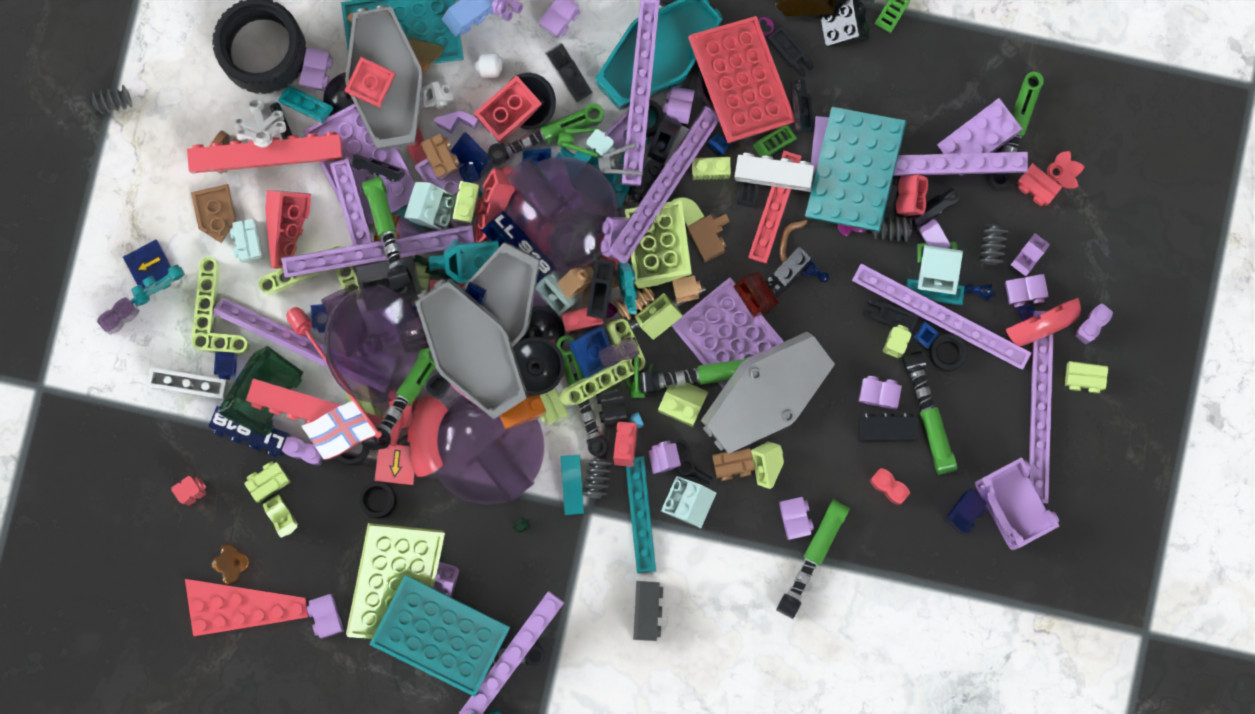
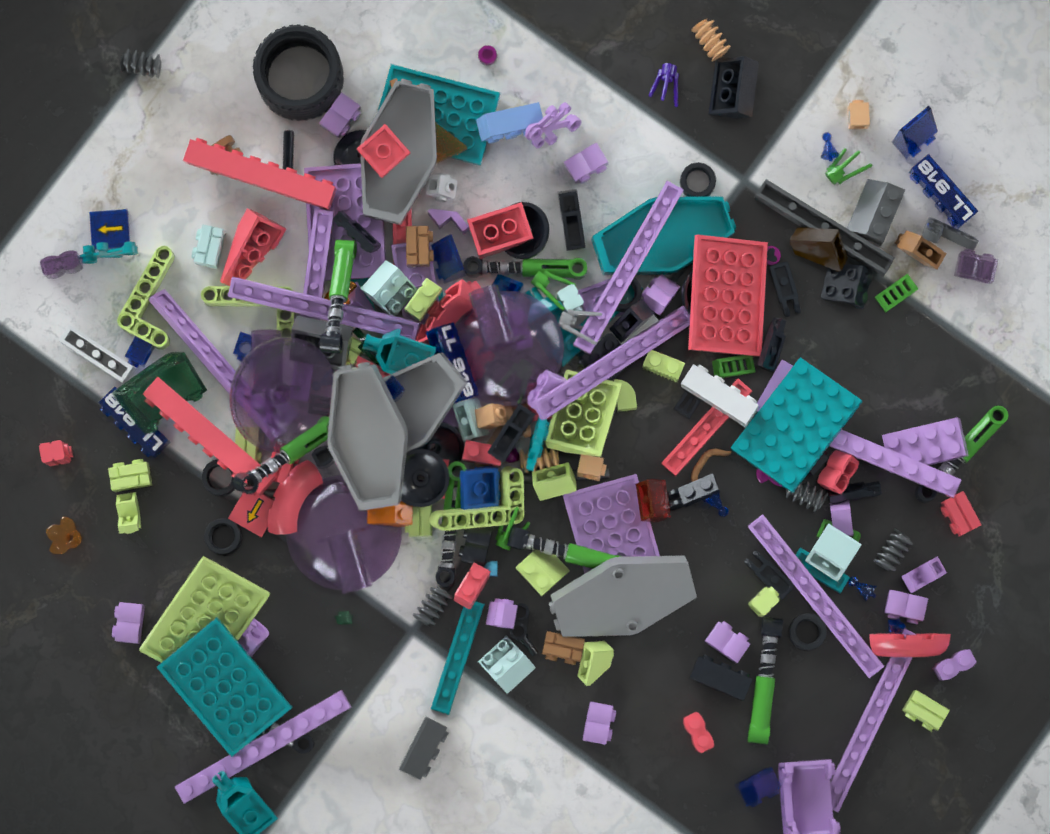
camera: 20 degrees right, 0 degrees up
(214, 211) = (191, 206): medium nougat tile -> none
(228, 608) = (47, 577): coral wing -> none
(262, 137) = (264, 159): white plant -> none
(300, 450) = (179, 466): lavender brick -> none
(305, 104) = (317, 144): teal tile -> none
(341, 426) = (218, 456): flag -> none
(469, 172) = (439, 273): clear blue piece -> none
(490, 65) = (501, 182): white head -> none
(572, 484) = (407, 601): teal slope -> none
(623, 350) = (508, 499): clear purple brick -> none
(705, 236) = (629, 427): medium nougat hinge -> none
(718, 145) = (680, 347): blue slope -> none
(814, 556) = (599, 766): piece -> none
(926, 335) = (793, 607): blue slope -> none
(1067, 170) = (993, 511): coral plate -> none

